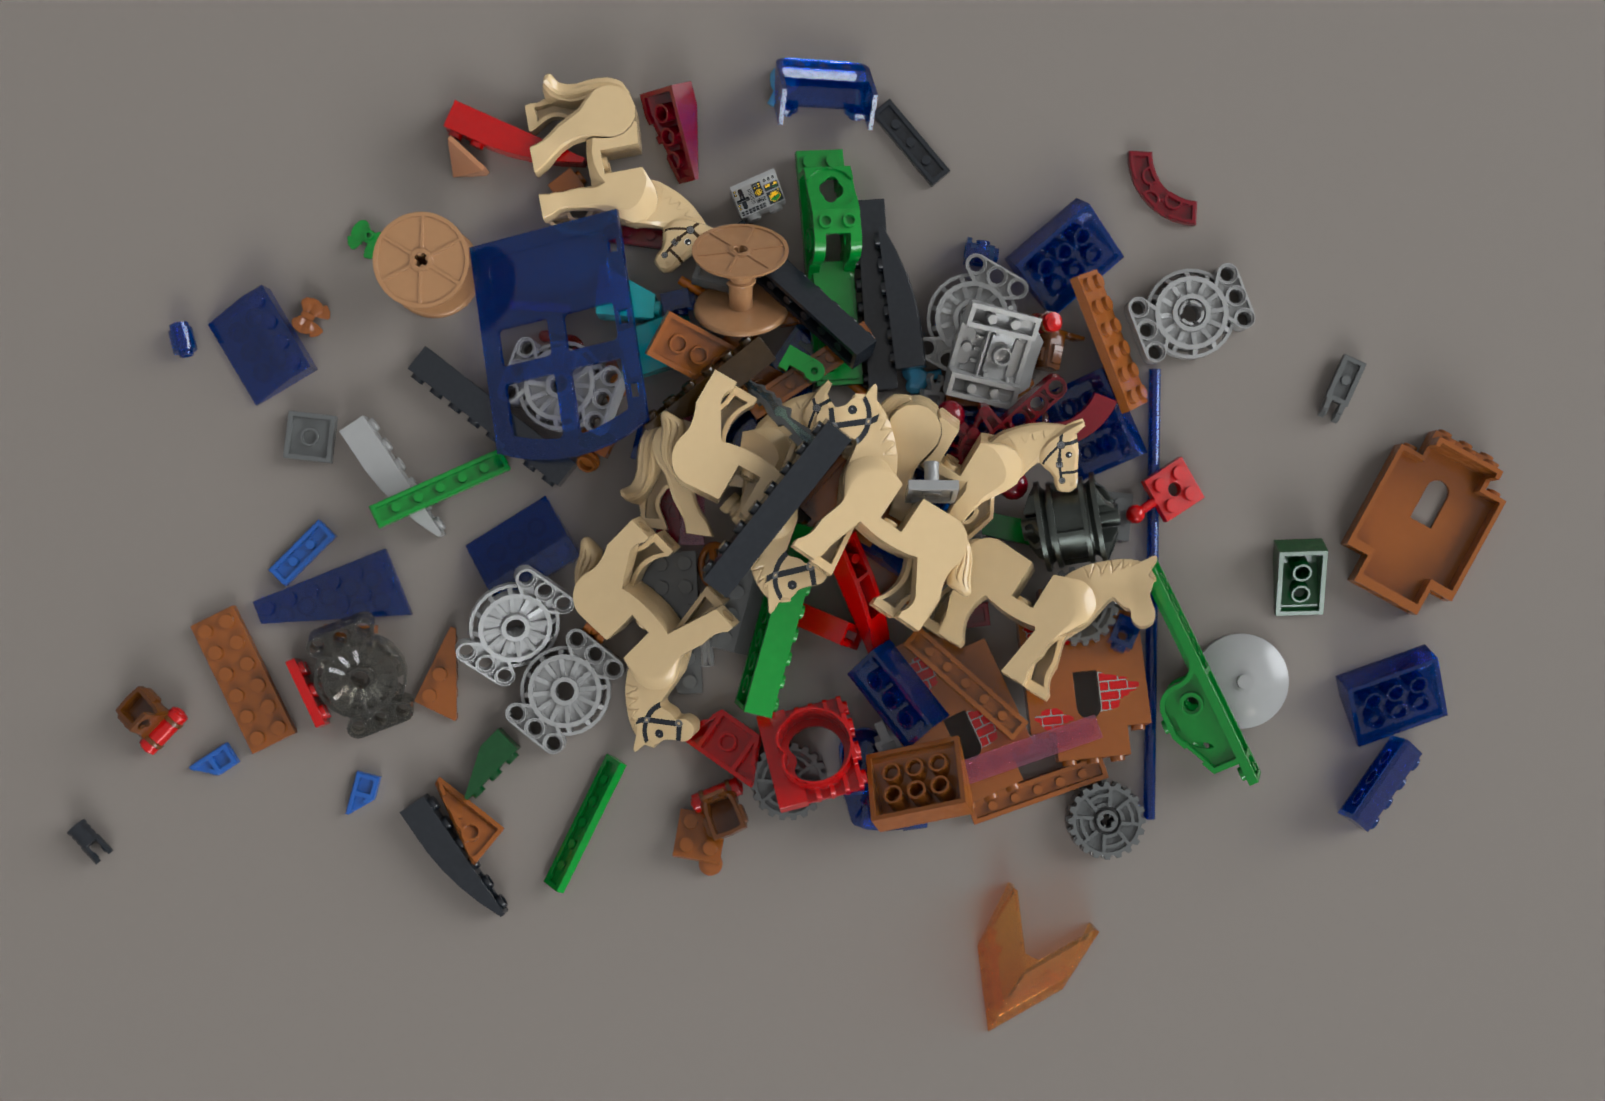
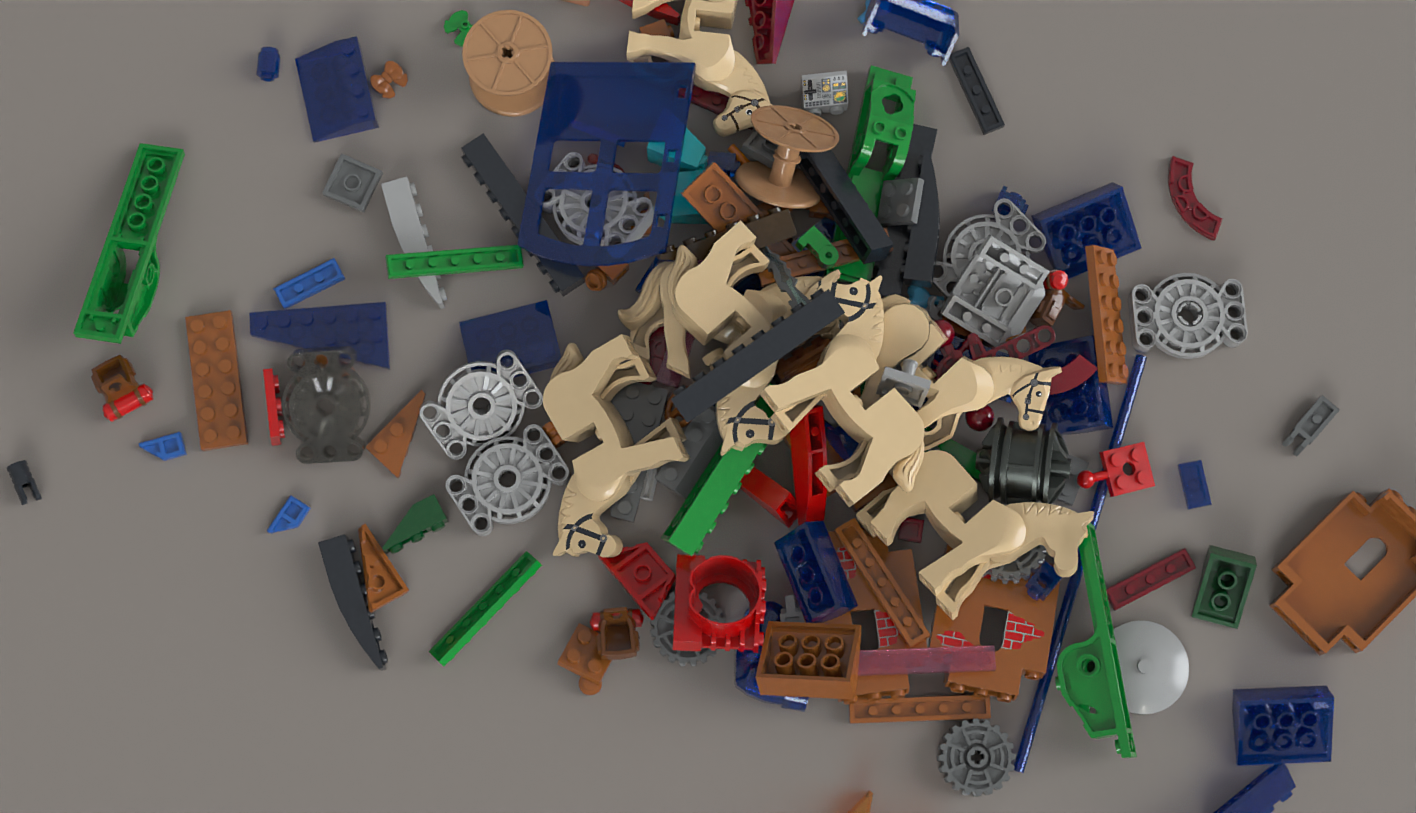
camera: 15 degrees right, 10 degrees down
(104, 557) = (137, 229): none -> green piece
(869, 289) = (900, 201): none -> dark grey plate
(1224, 591) = (1150, 579): none -> dark red tile
(1243, 484) = (1194, 484): none -> clear blue plate

